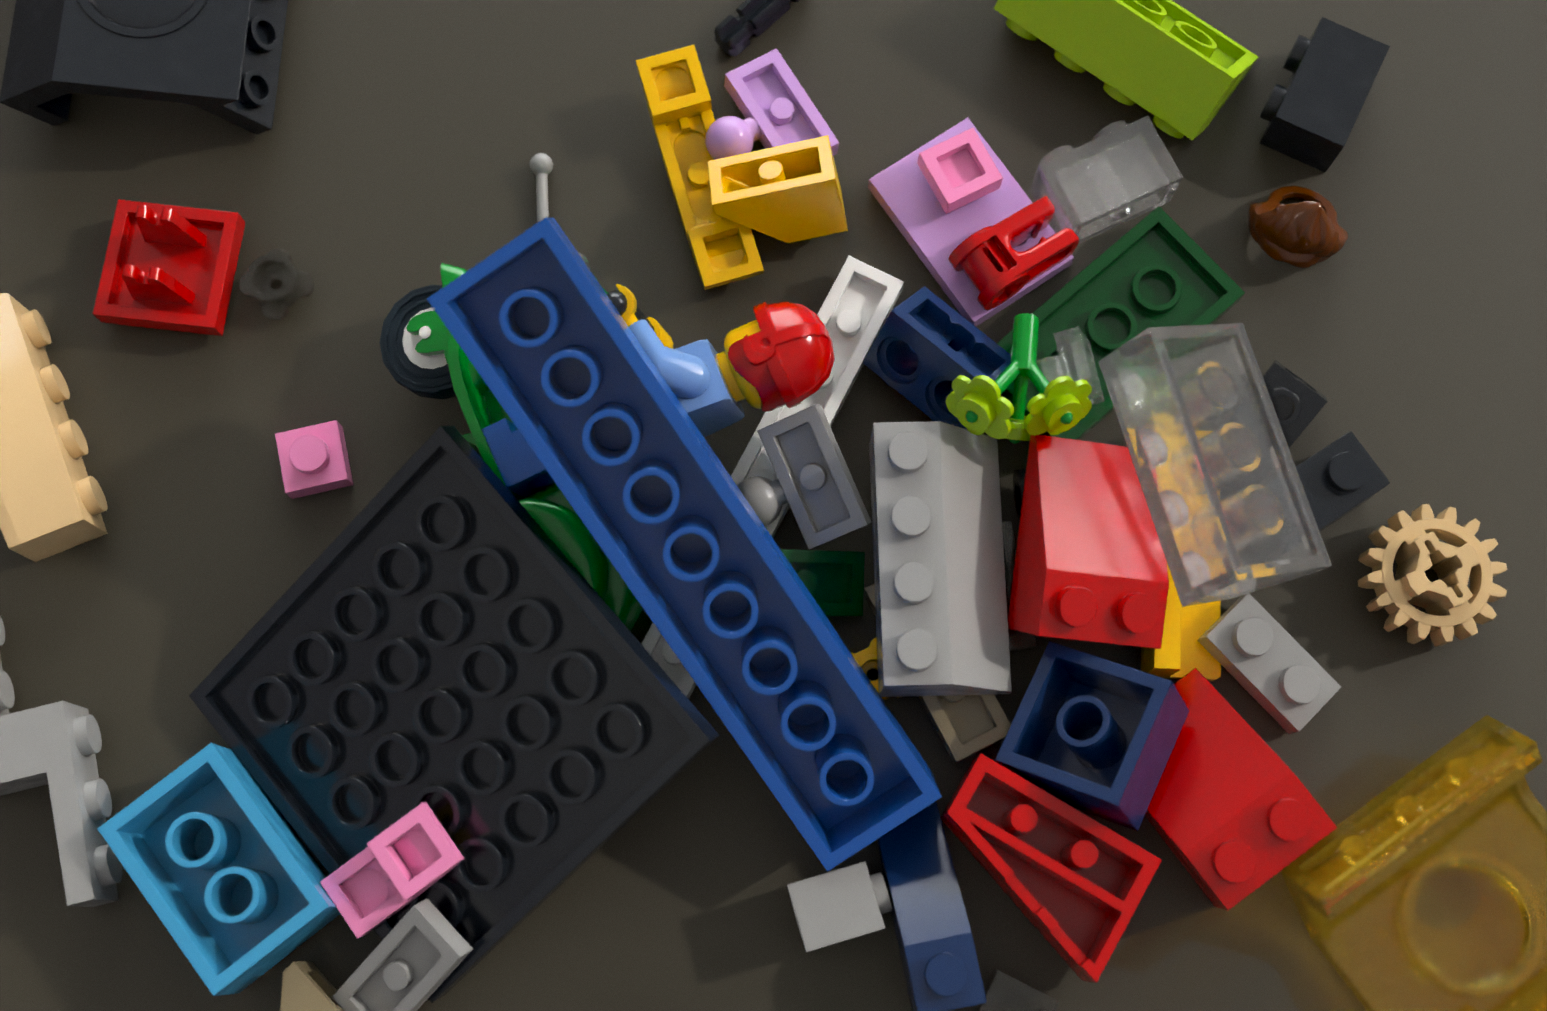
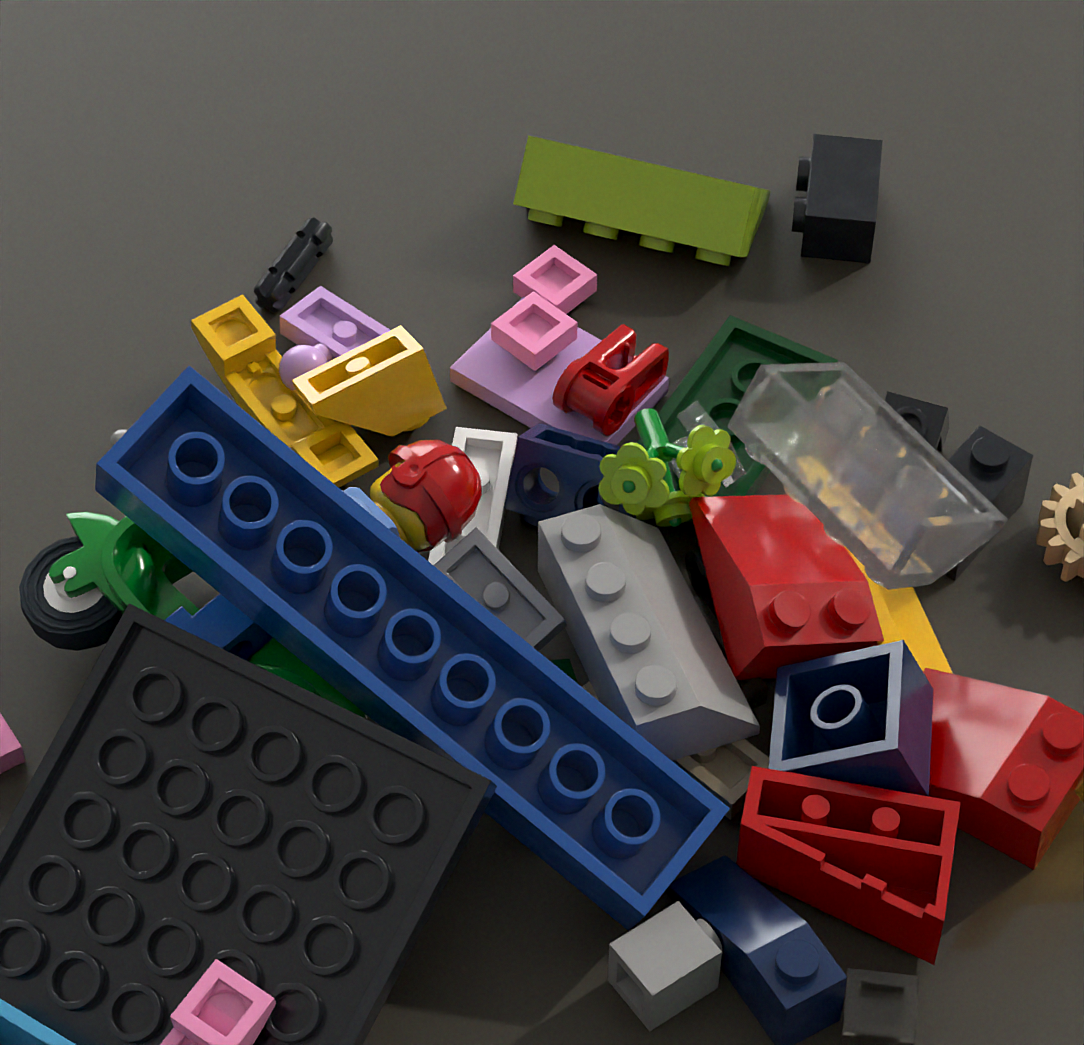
camera: 20 degrees left, 25 degrees down
(1004, 110) = (556, 279): none -> bright pink plate
(1107, 179) = (677, 304): clear brick -> none
(1269, 663) = (991, 645): light grey plate -> none
(1296, 231) = (862, 303): reddish brown piece -> none

